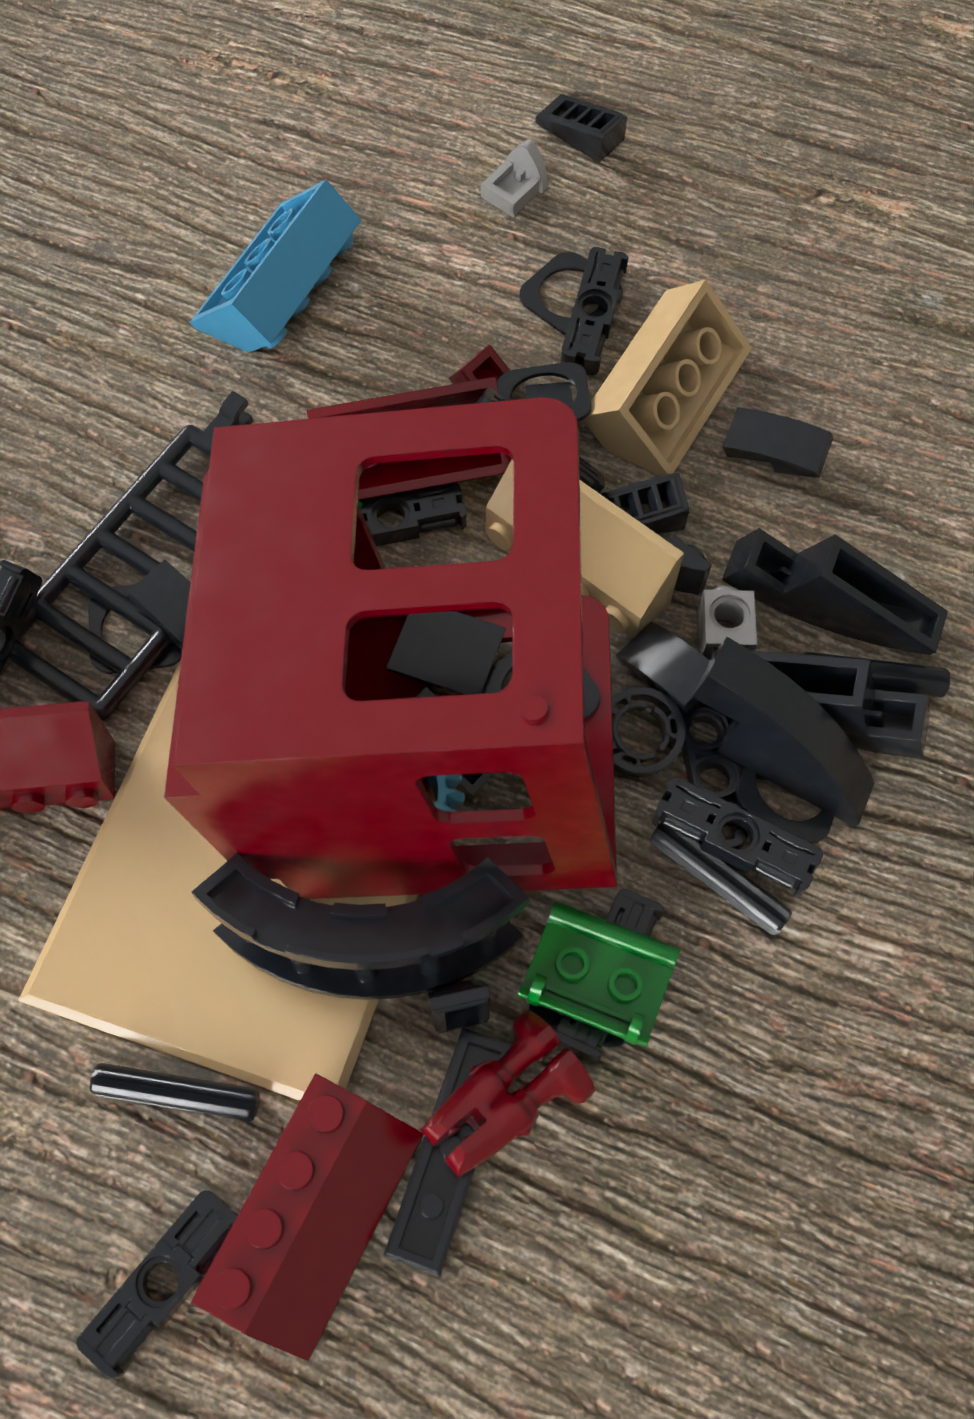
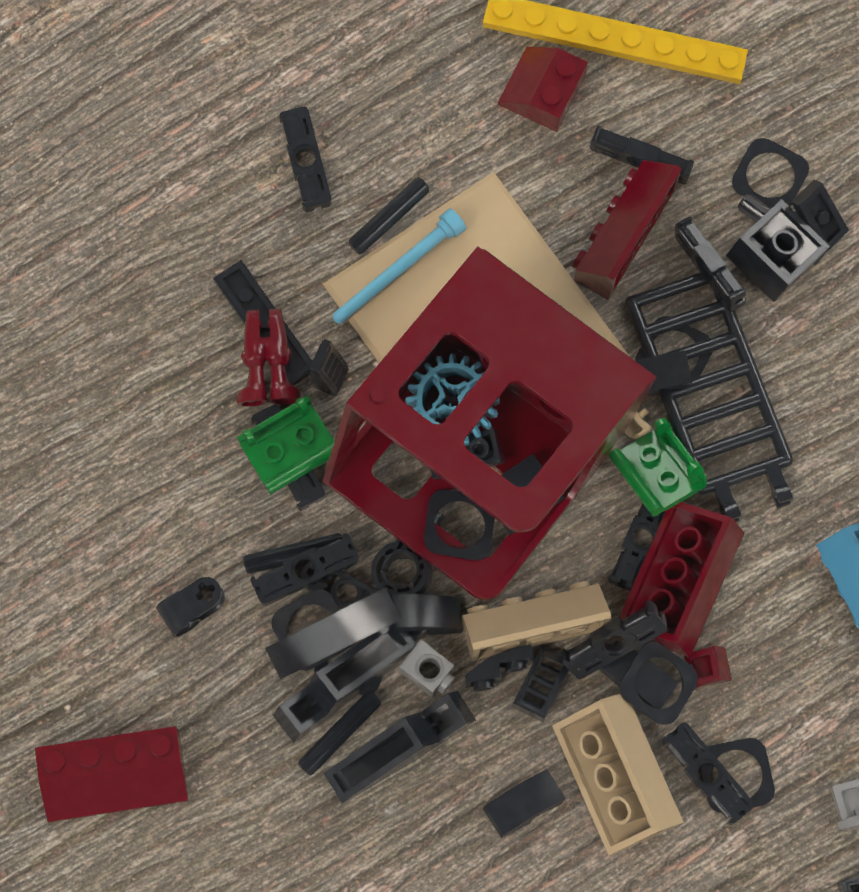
camera: 125 degrees right, 10 degrees up
(139, 993) = (448, 226): none -> medium azure piece
(308, 1219) = (282, 238): dark red slope -> none
(365, 947) = (385, 324): black fence -> none
(898, 948) = (187, 608): none -> black piece

